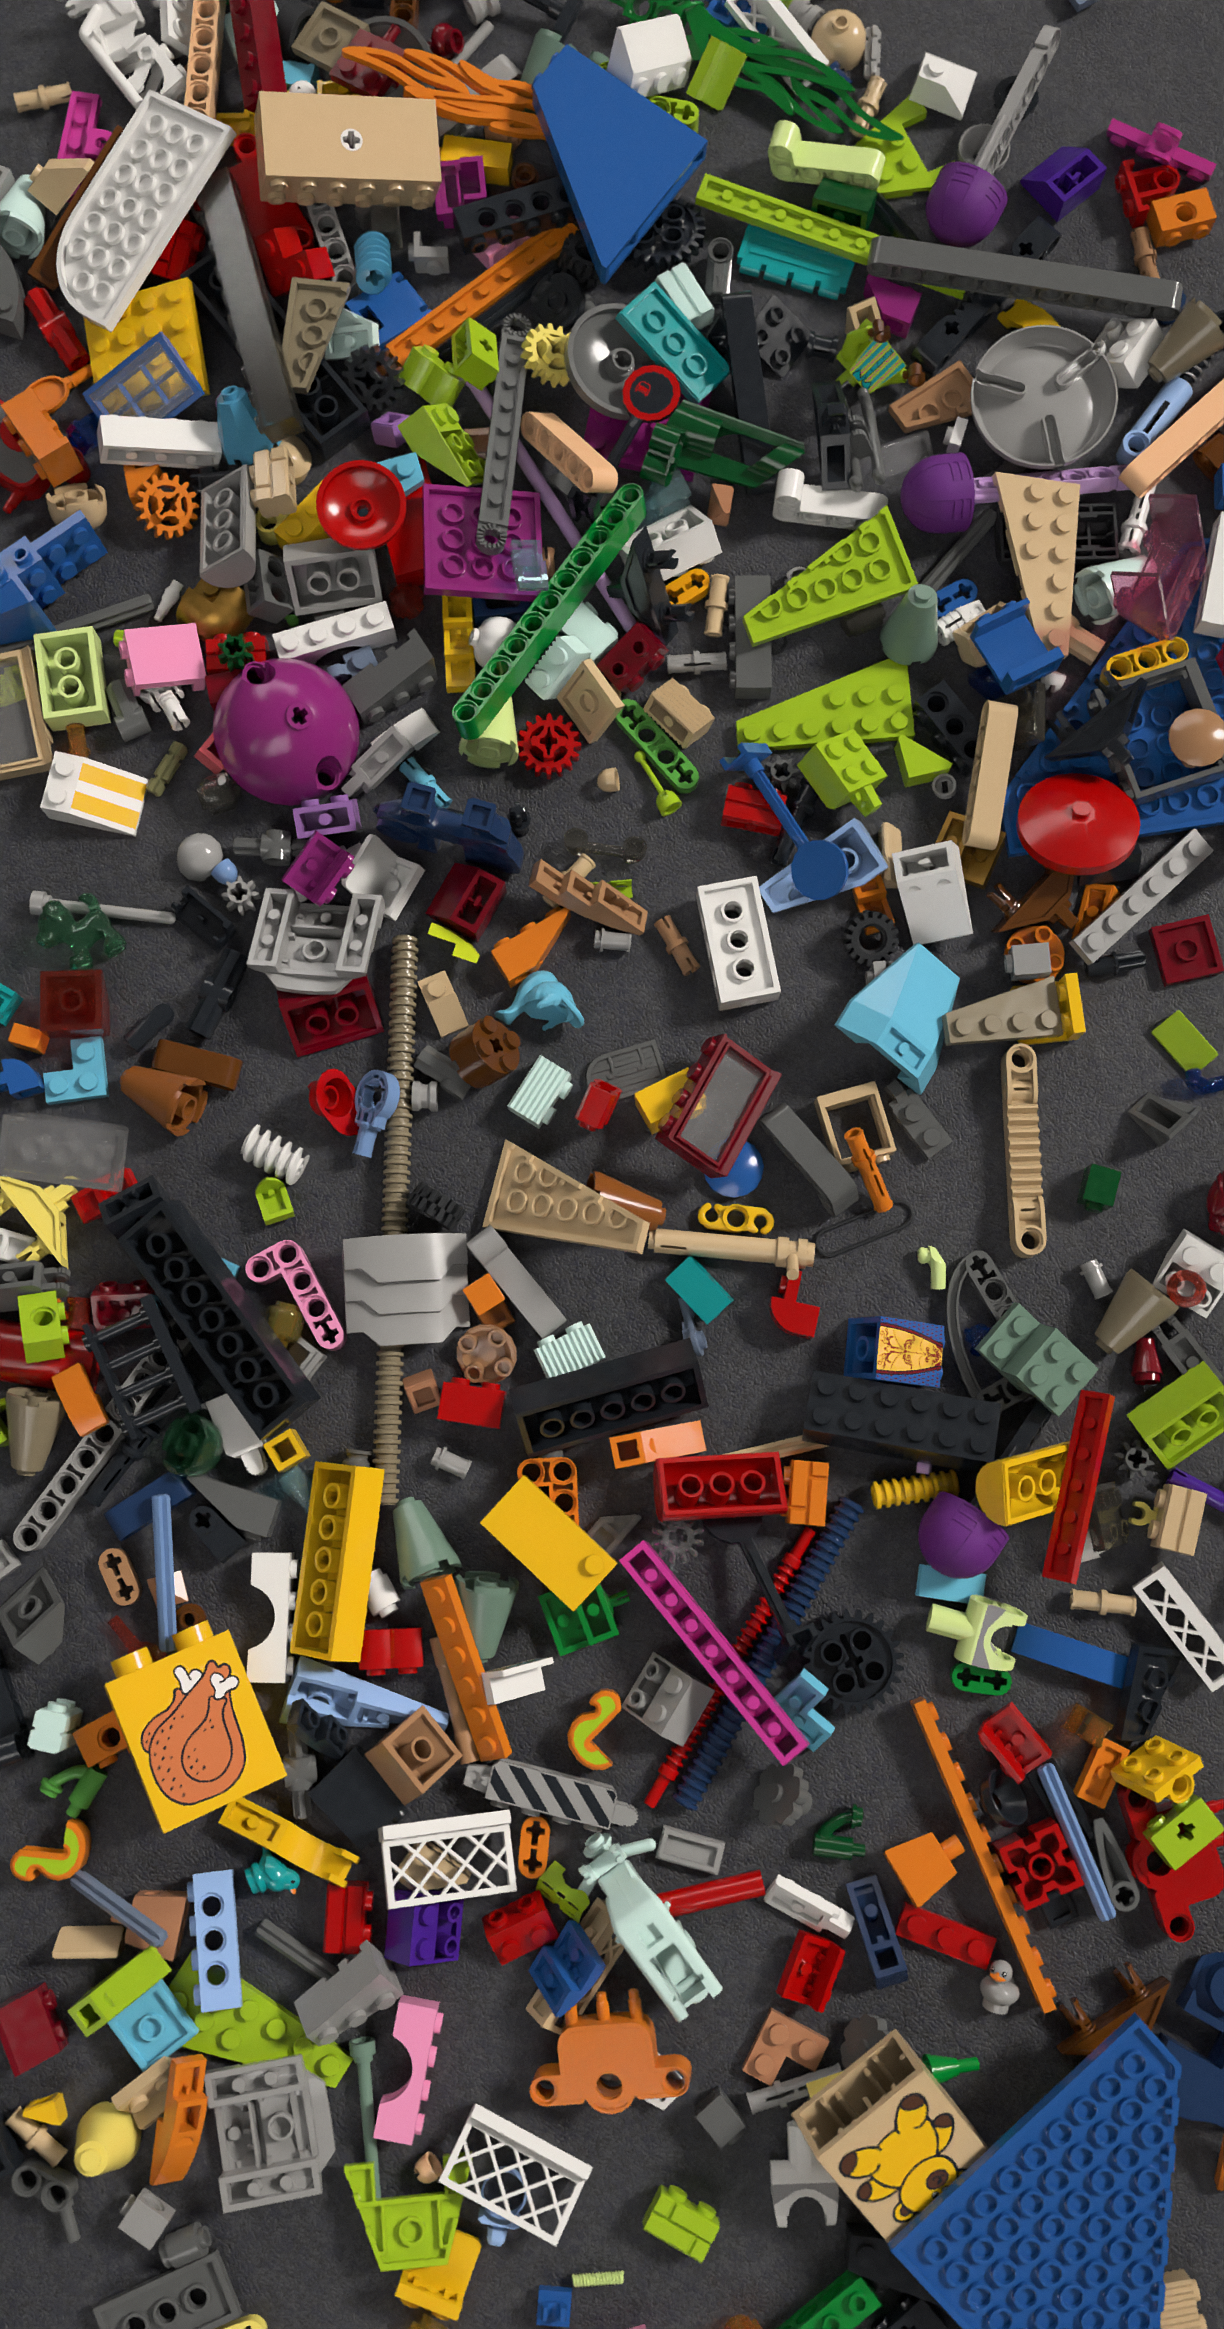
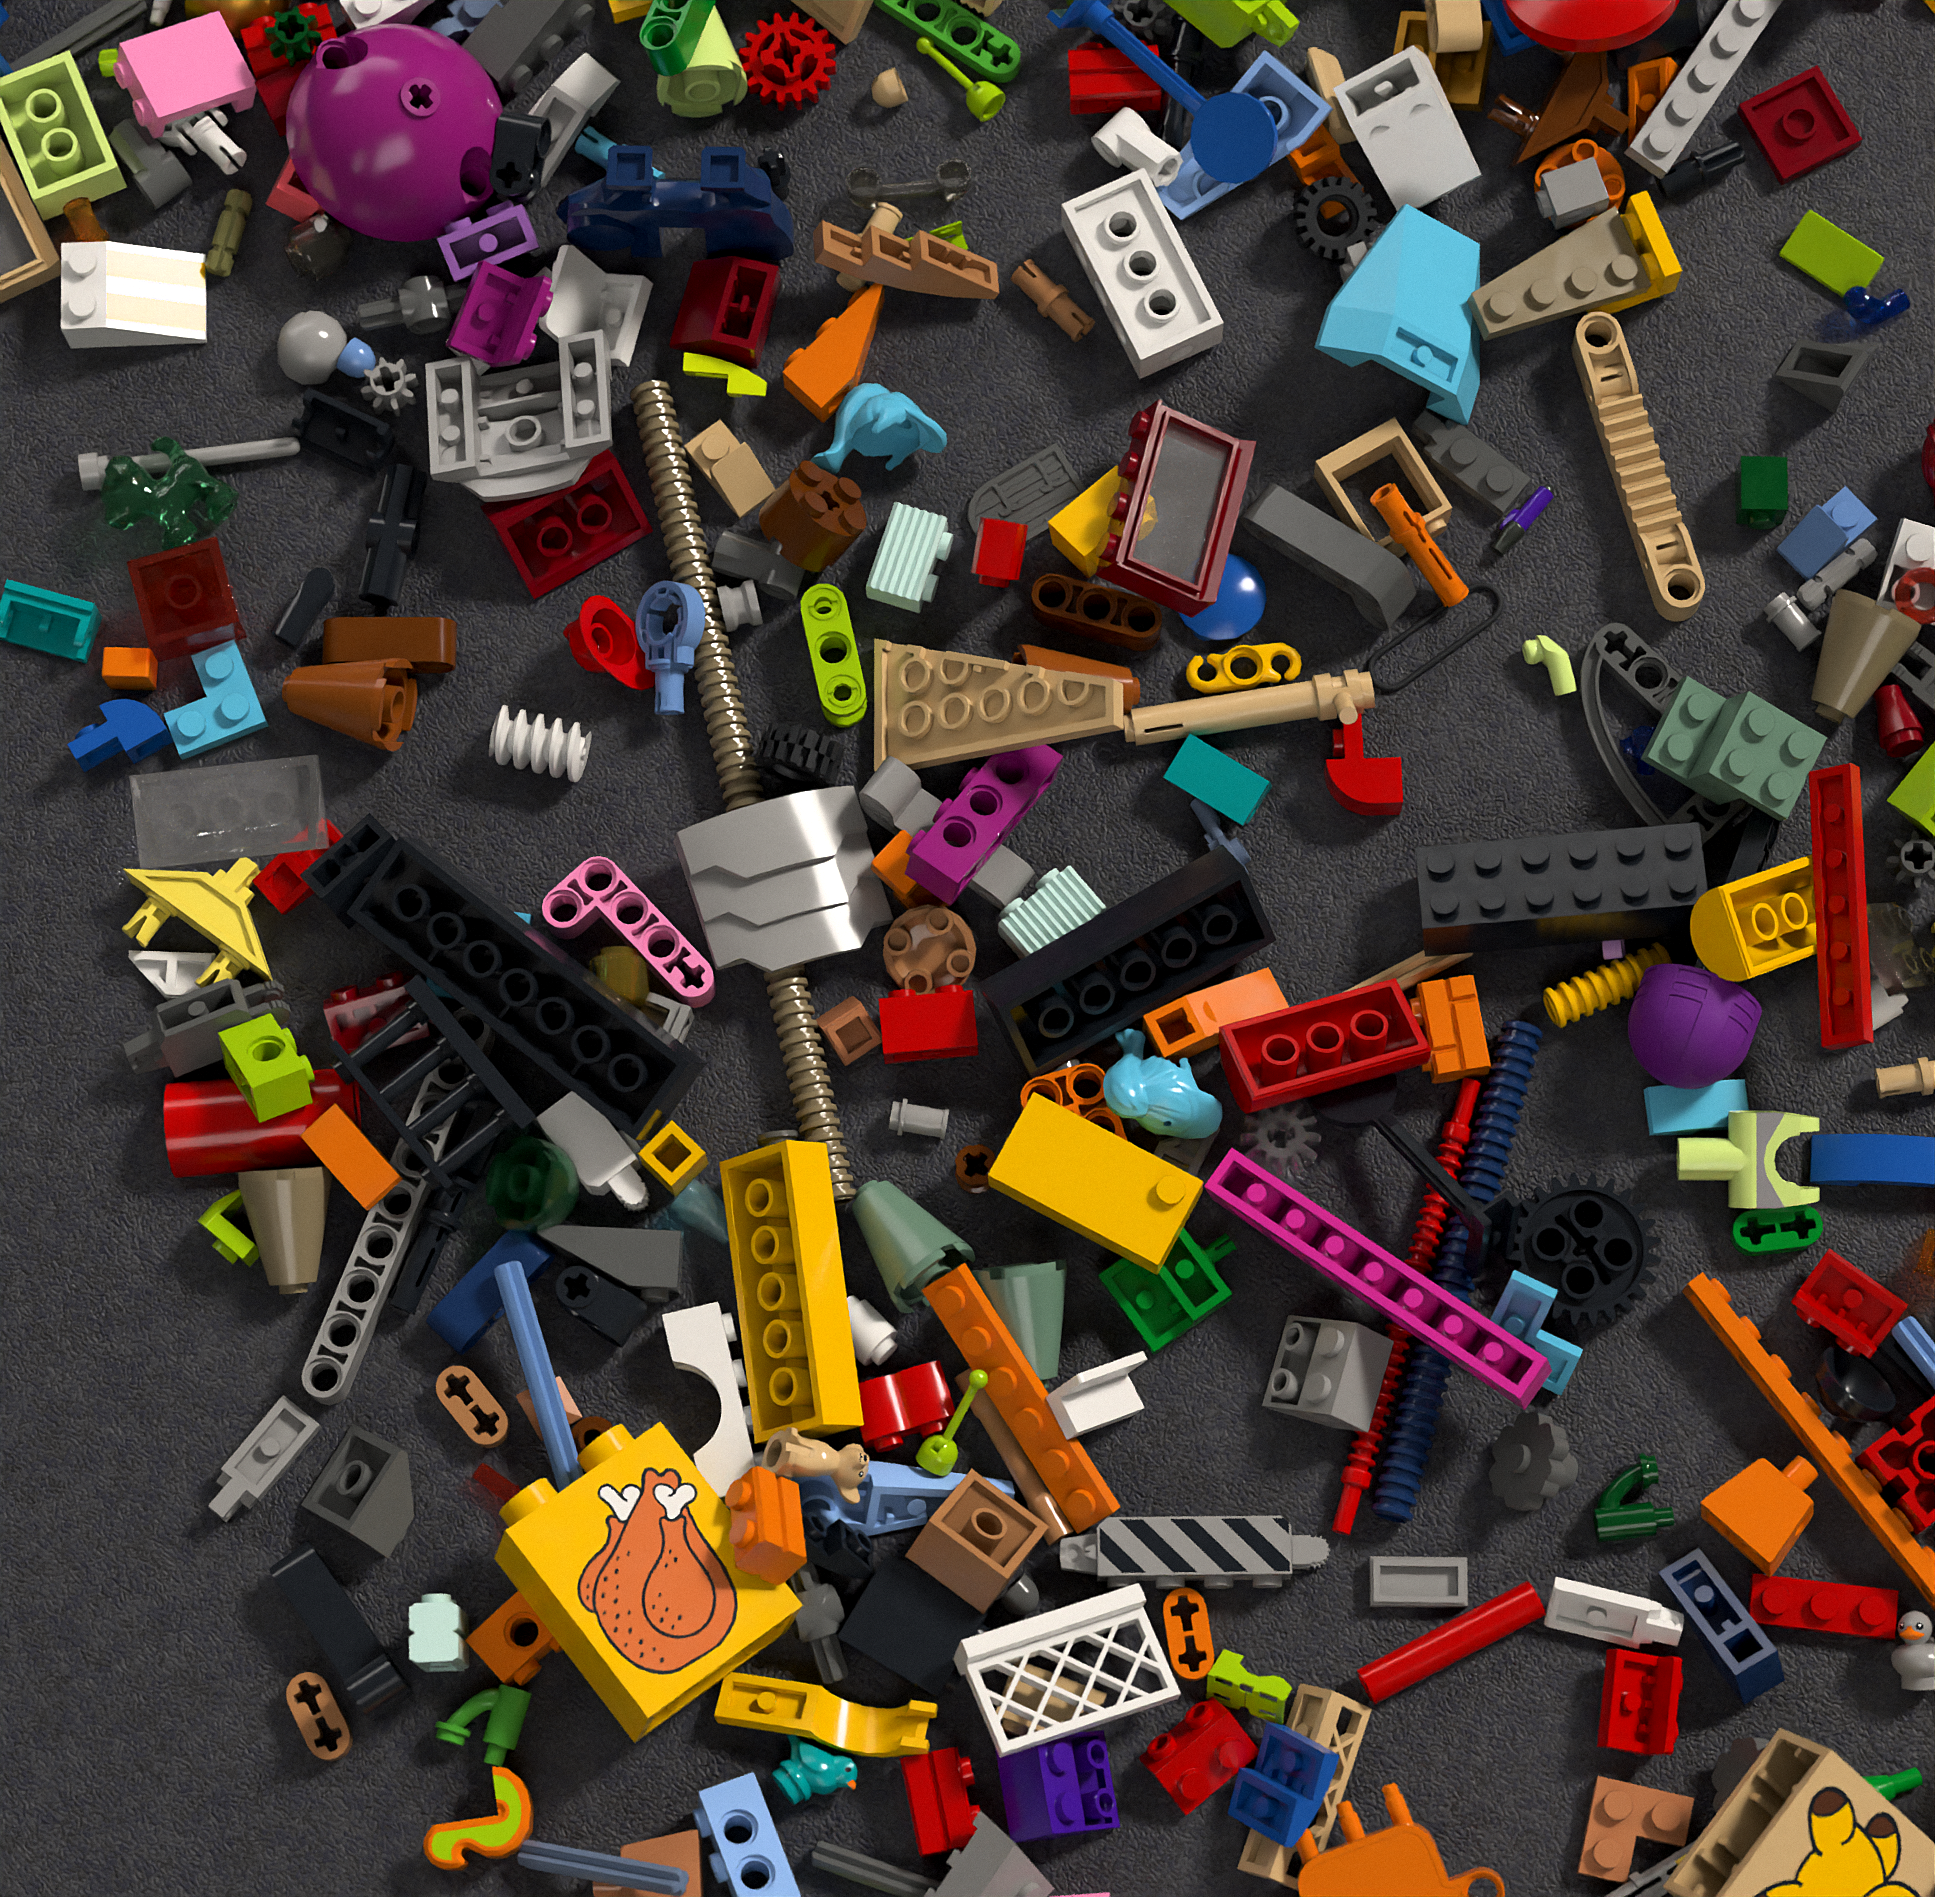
camera: 10 degrees left, 5 degrees down
(78, 1313) = (312, 1041): clear red bush -> none
(273, 1200) = (556, 809): lime plate -> none
(276, 1718) = (766, 1525): none -> orange brick
(306, 1671) = (798, 1456): none -> tan animal
(360, 763) = (522, 149): none -> black piece
(410, 1681) = (939, 1451): none -> lime hinge
(435, 1794) = (1020, 1596): none -> dark grey hinge
(469, 1504) = (974, 1154): none -> reddish brown bush
(472, 1128) = (829, 632): none -> lime piece
(509, 1311) = (950, 869): none -> magenta brick
(588, 1725) = (1221, 1438): animal -> none
(604, 1488) = (1159, 1092): none -> medium azure piece
(612, 940) = (955, 316): light grey pin -> none
(643, 1145) = (1080, 595): none -> reddish brown beam
(645, 1925) = (1387, 1683): light aqua piece -> none
(754, 855) = (1130, 142): none -> white piece
(894, 1351) = (1526, 790): slope -> none
(938, 1166) = (1518, 521): none -> piece
(1133, 1225) = (1826, 533): none -> medium blue slope
(1133, 1254) = (1836, 574): none -> light grey axle

